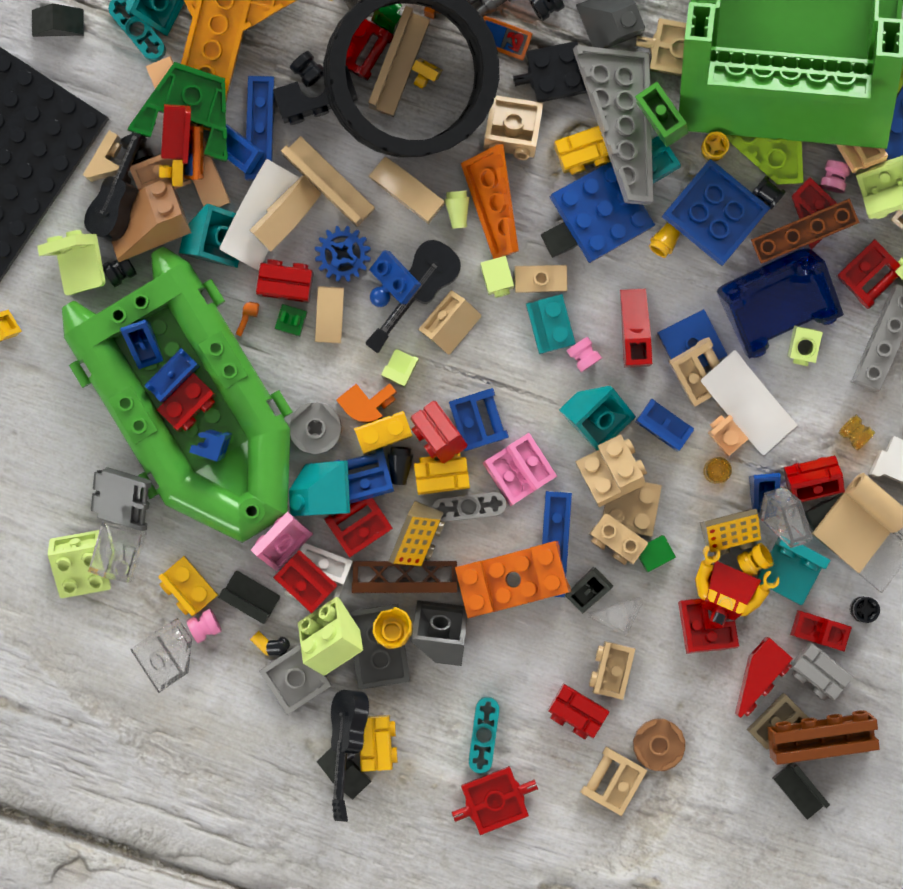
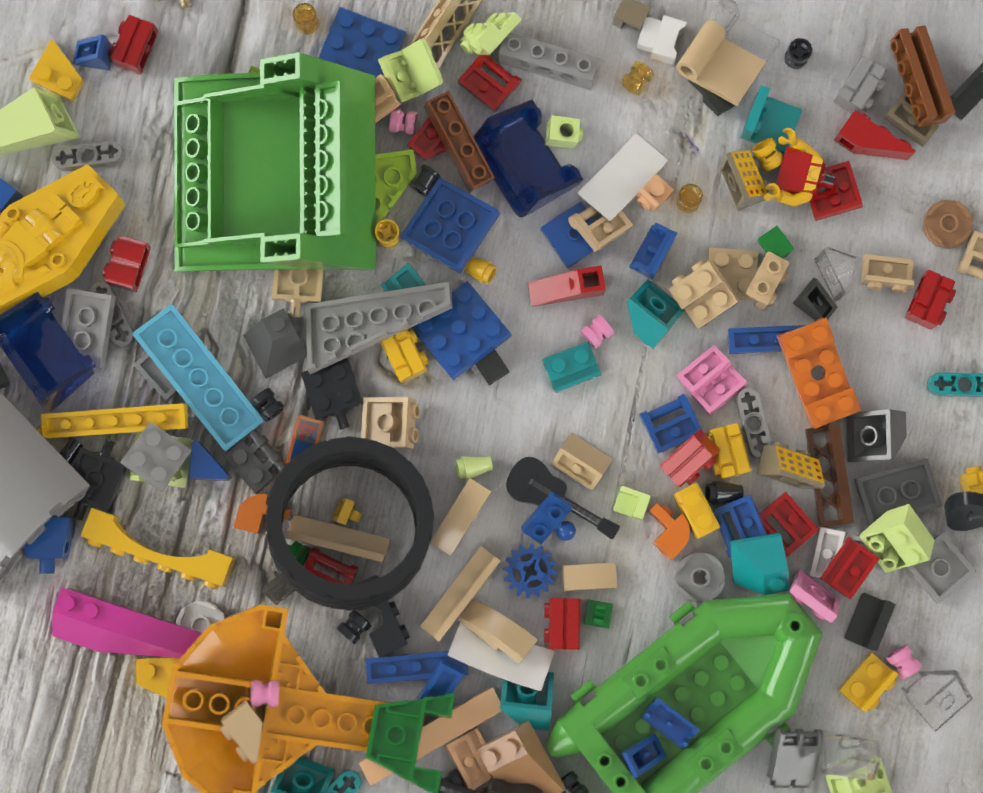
camera: 100 degrees left, 5 degrees down
(174, 172) = (471, 745): yellow tile -> none
(176, 132) = (434, 745): red panel -> none
(187, 403) = (693, 704): red bracket -> none
(195, 167) = (450, 728): orange slope -> none
(214, 445) = (738, 676): blue hinge -> none
(249, 309) = (593, 654): orange hand -> none
(271, 647) = (913, 596): black arm -> none
(392, 628) = (883, 479): yellow hair -> none
(491, 194) = (459, 434): orange wing -> none
(497, 276) = (534, 421): yellowish green brick -> none
(540, 279) = (530, 381): tan plate -> none
(662, 114) = (365, 281): bright green hinge -> none
(761, 484) = (703, 153): blue slope -> none
(785, 517) = (727, 128): clear slope -> none
(815, 478) = (686, 109): red brick -> none
(821, 630) = (822, 91): red slope -> none

